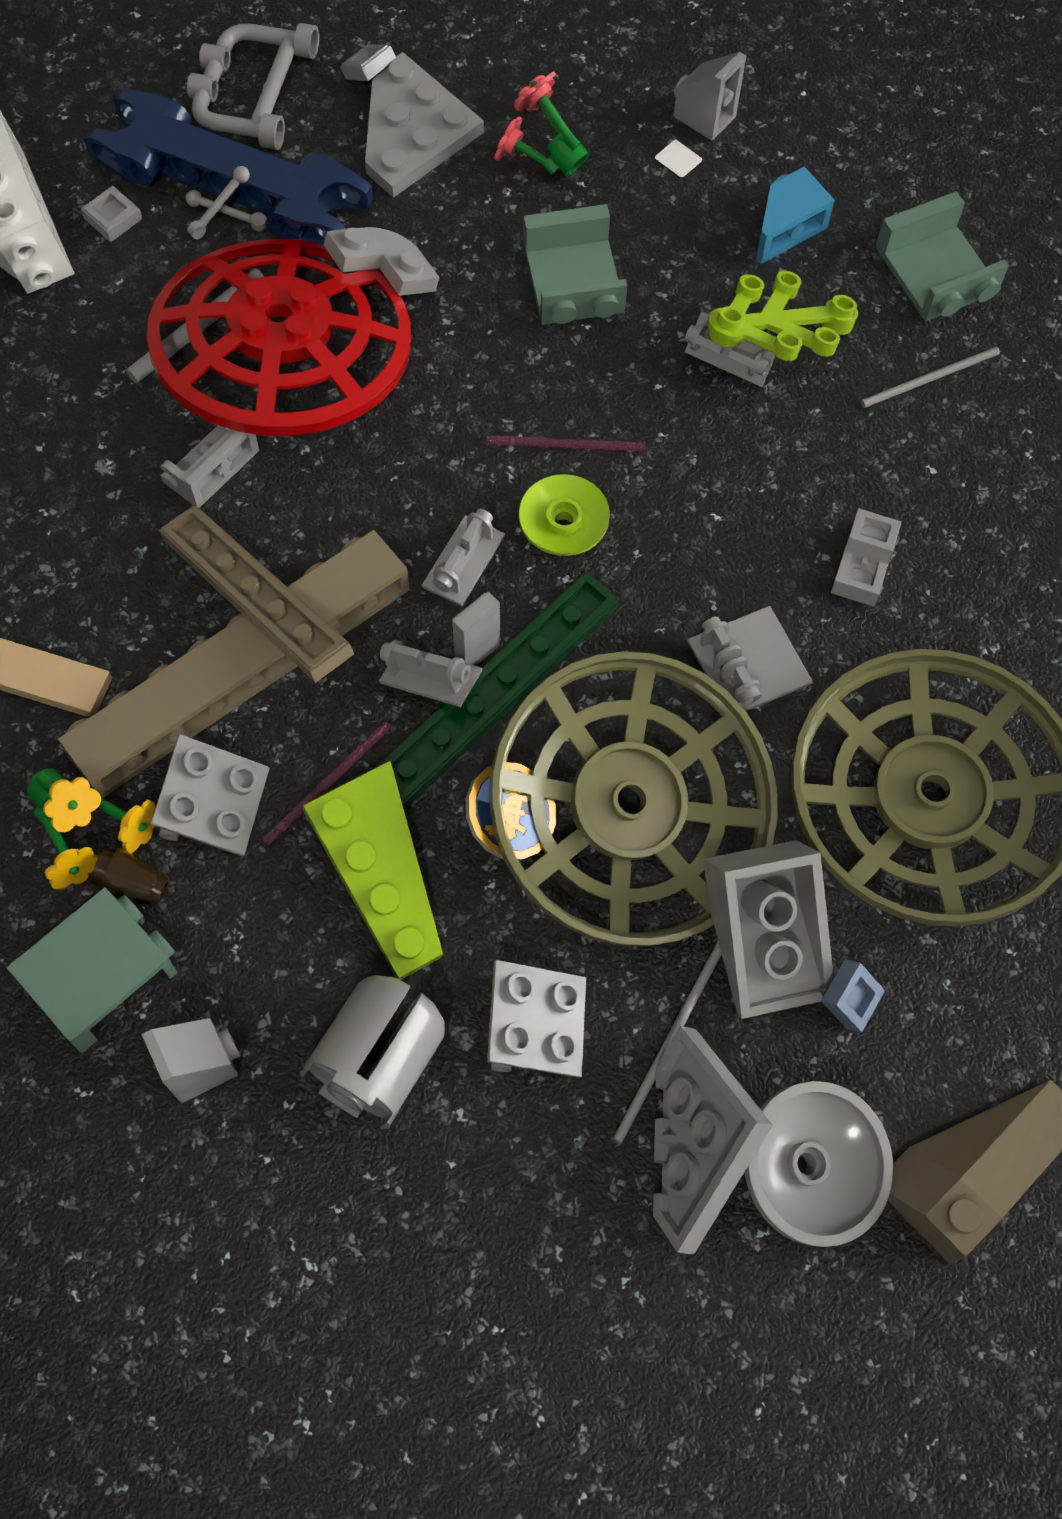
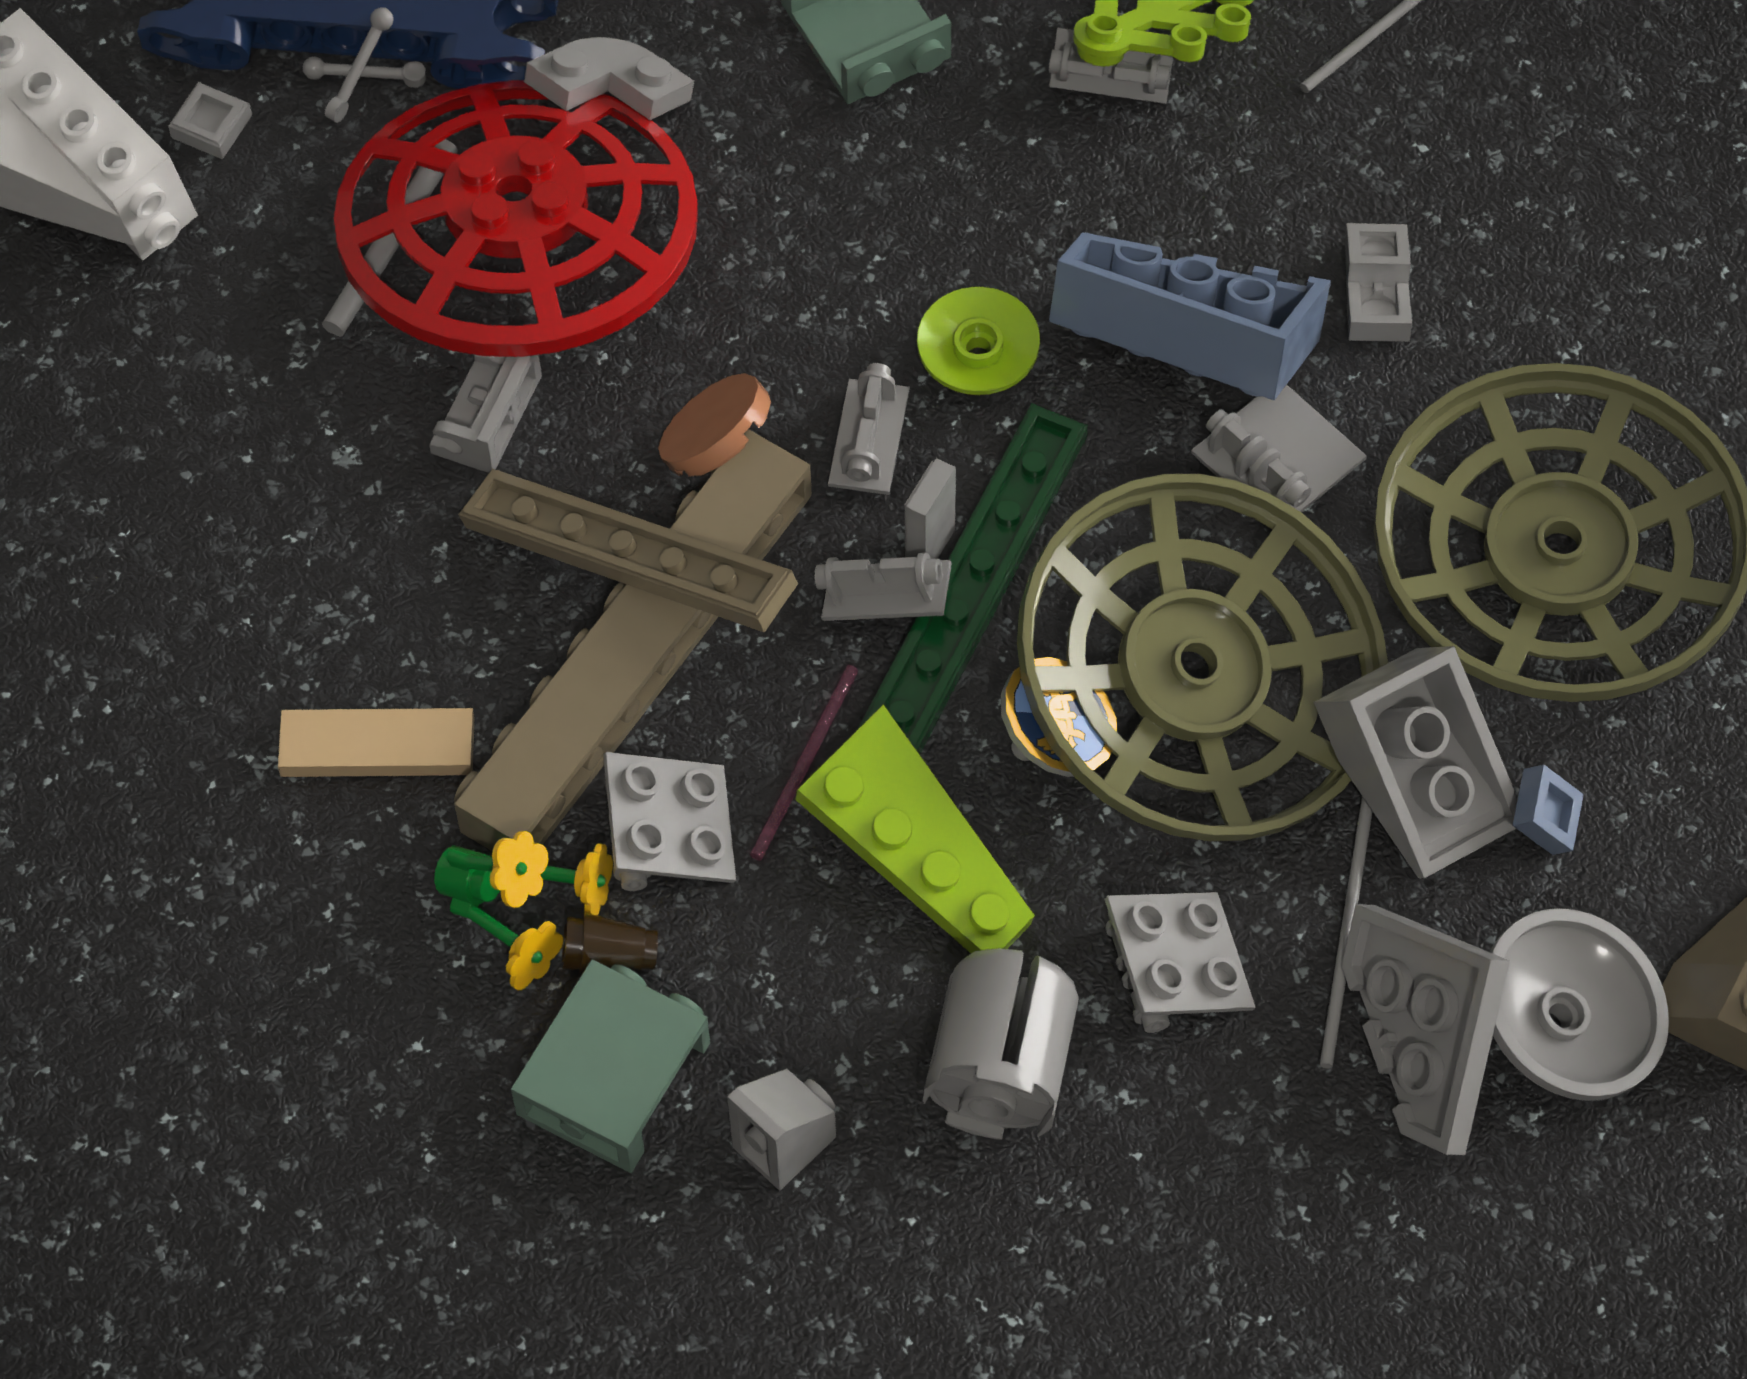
camera: 15 degrees left, 5 degrees down
(349, 520) = (714, 425): none -> nougat tile
(566, 443) = (940, 249): clear pink axle -> none
(720, 539) = (1190, 312): none -> sand blue wedge

